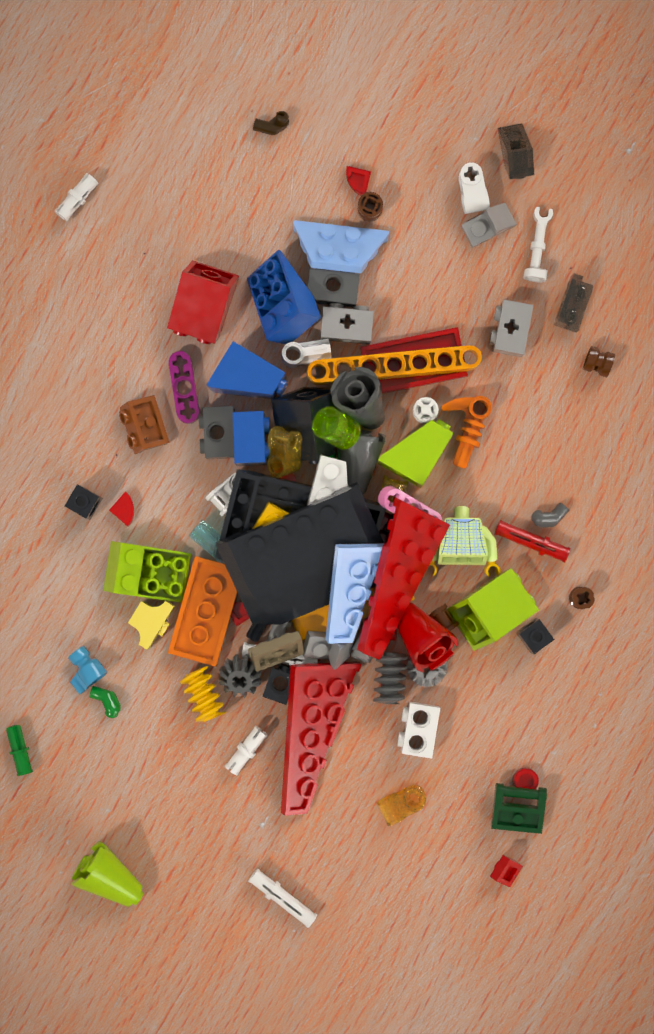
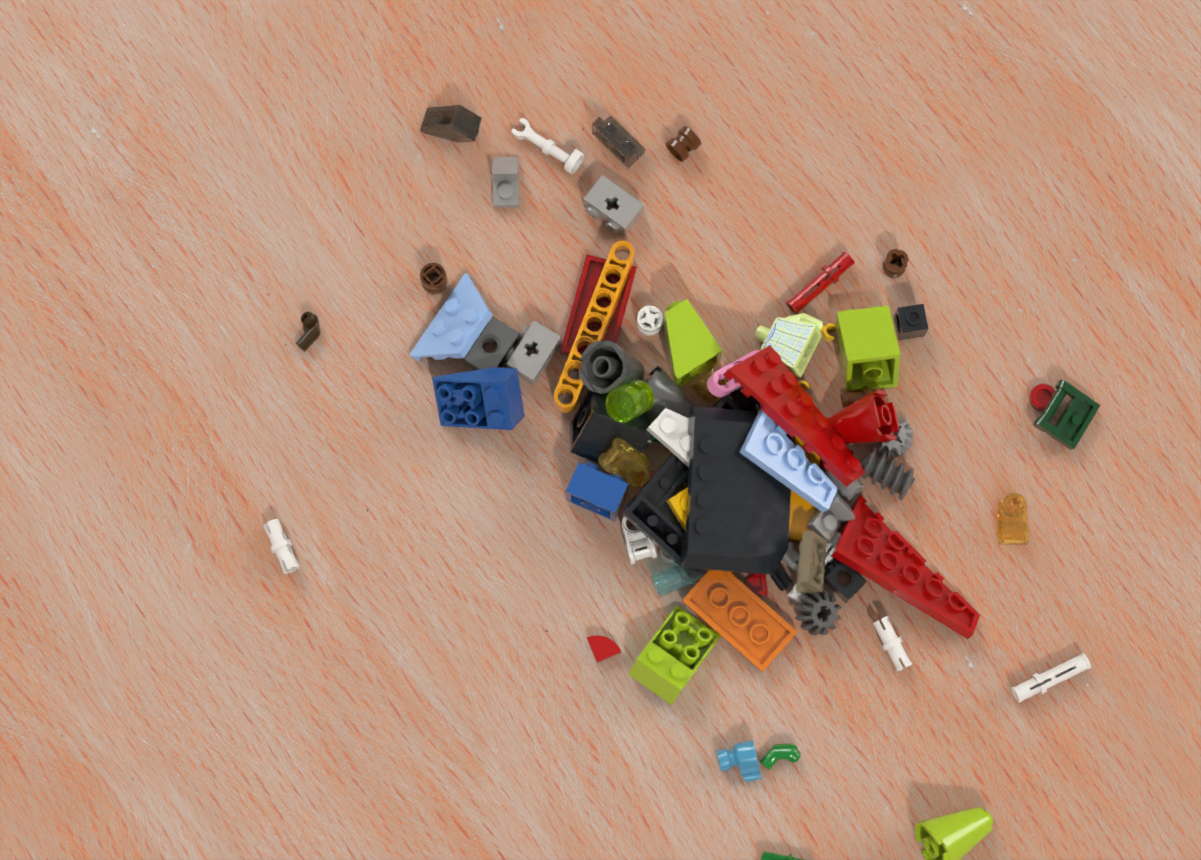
camera: 65 degrees left, 10 degrees down
(83, 502) = (577, 681): black brick -> none
(143, 424) = (531, 588): dark orange bracket -> none
(151, 621) = (724, 673): light yellow brick -> none
(193, 393) = (498, 520): magenta beam -> none
(202, 302) = (444, 475): red slope -> none
(202, 695) = (819, 658): yellow piece -> none
(208, 420) = (565, 508): dark grey brick -> none
(247, 375) = (535, 464): blue slope -> none
(308, 352) = (540, 401): white piece -> none
(358, 179) = (402, 278): red tile -> none
(426, 730) = (952, 464): white brick -> none
(472, 428) = (685, 283): orange piece -> none
(473, 193) = (469, 179): white piece -> none
(506, 871) = (1120, 455): red plate -> none
(549, 519) = (807, 256): dark grey arm -> none

